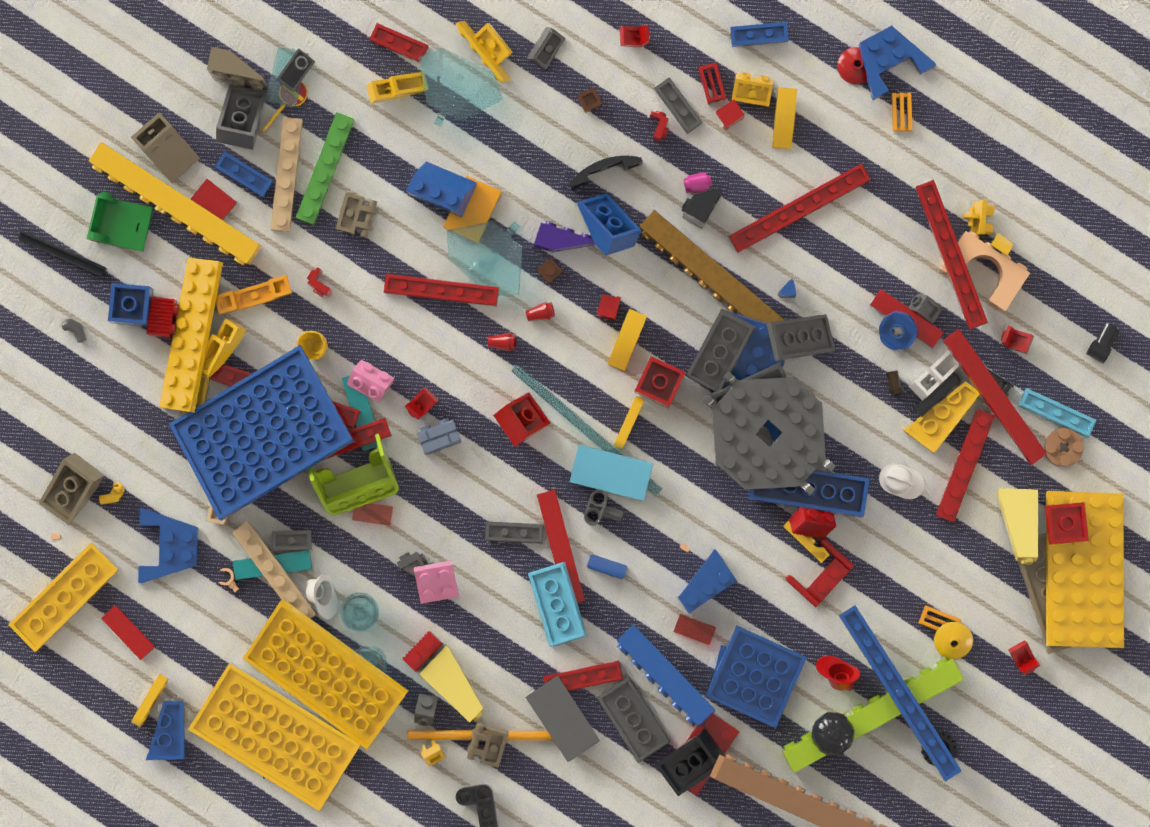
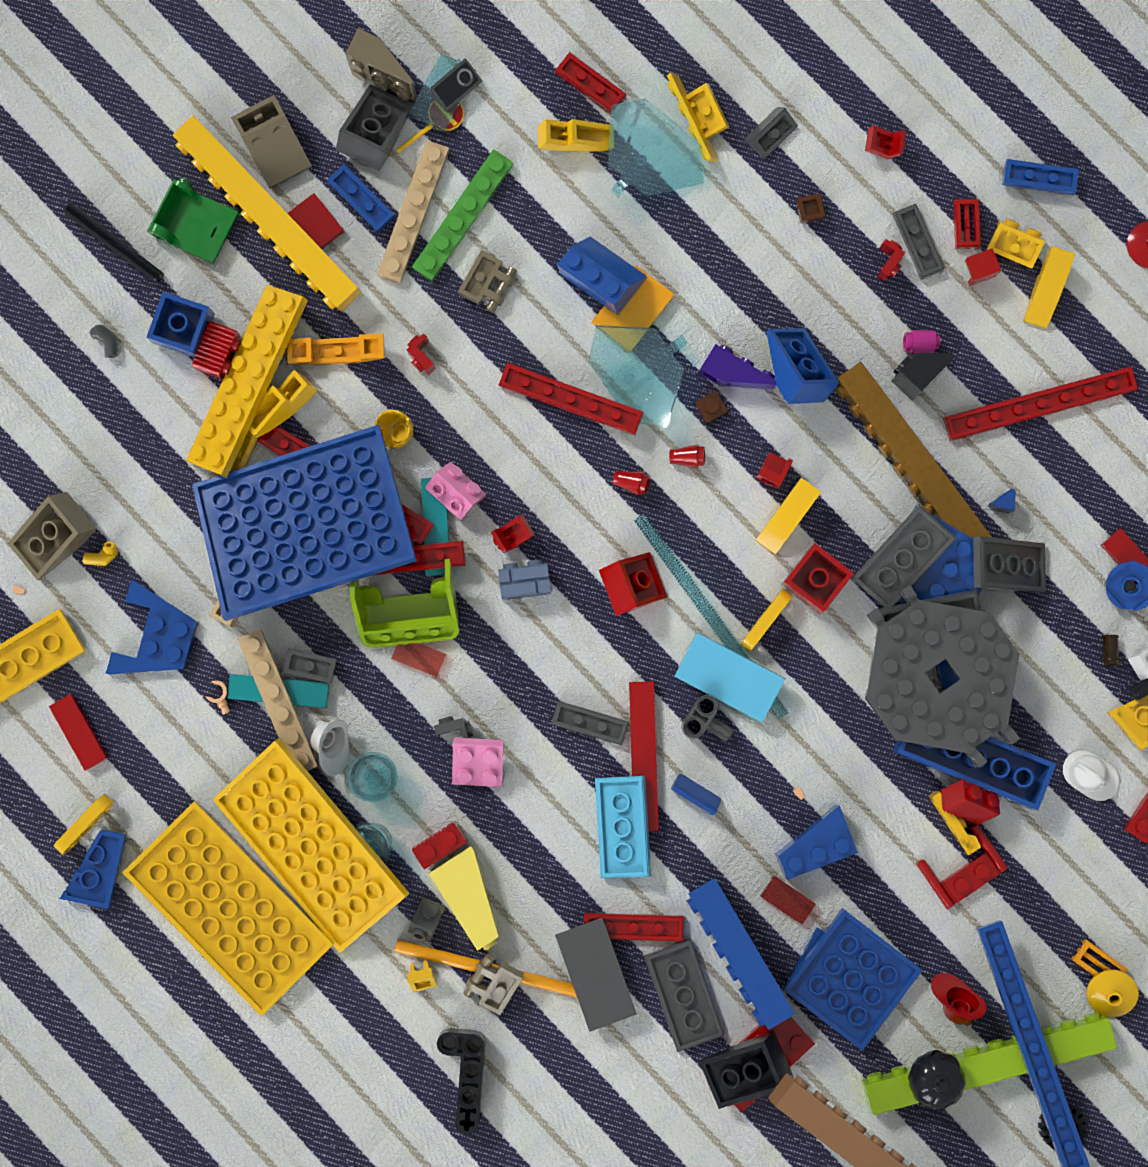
camera: 10 degrees right, 0 degrees up
(627, 161) = (839, 294): black slope -> none

